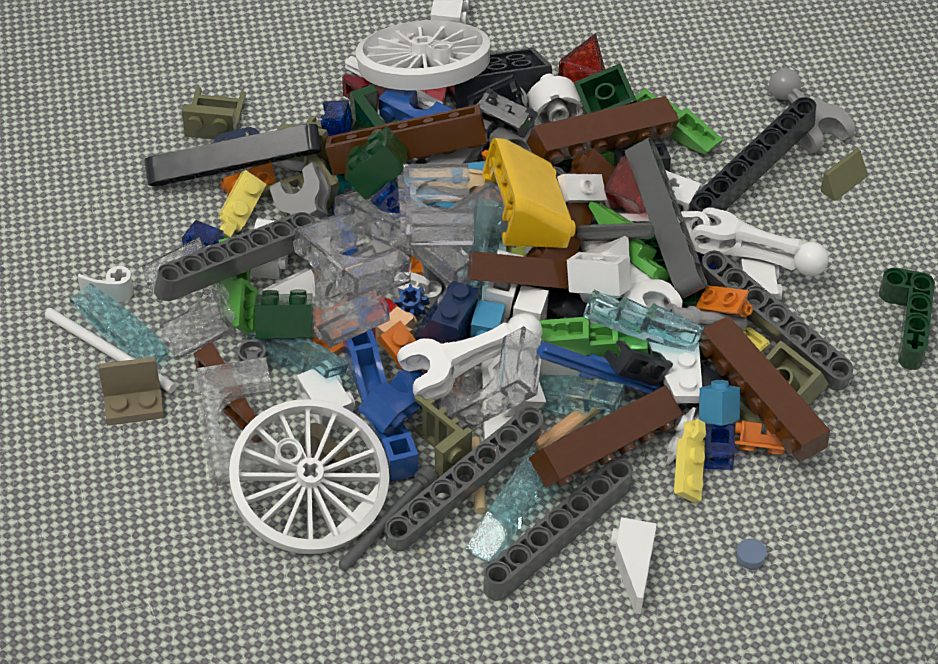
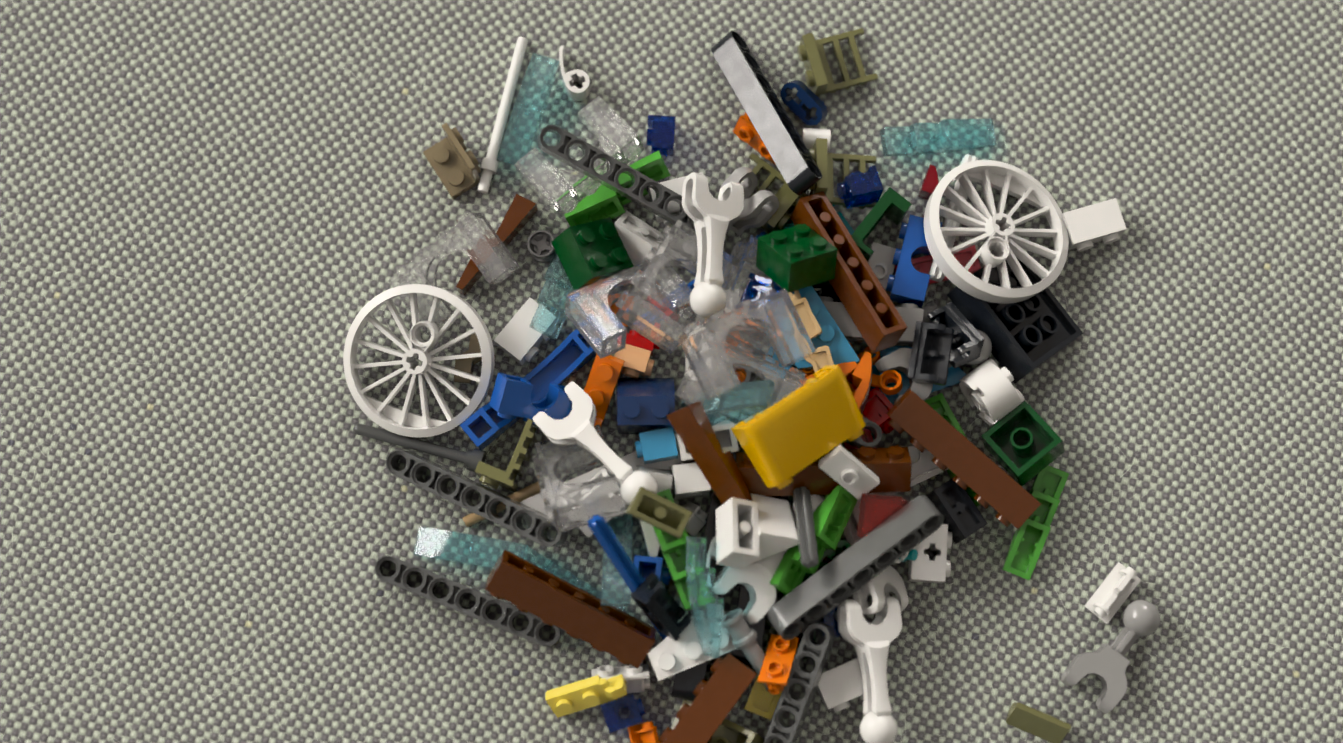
camera: 65 degrees right, 30 degrees up
(240, 203) = (720, 145): light yellow hinge -> none
(307, 200) = (711, 222): none -> white piece
(319, 74) = (936, 138): none -> clear light blue slope
(412, 300) = (668, 368): blue gear -> none
(556, 318) = (659, 512): none -> olive slope
(565, 427) = (579, 558): light nougat axle -> none
(582, 60) = (1065, 400): clear red slope -> none
(633, 556) = (466, 679): white slope -> none
(719, 403) = (657, 699): dark azure brick -> none
(755, 97) = (1113, 592): none -> white hinge
(757, 157) = (1014, 635): black beam -> none

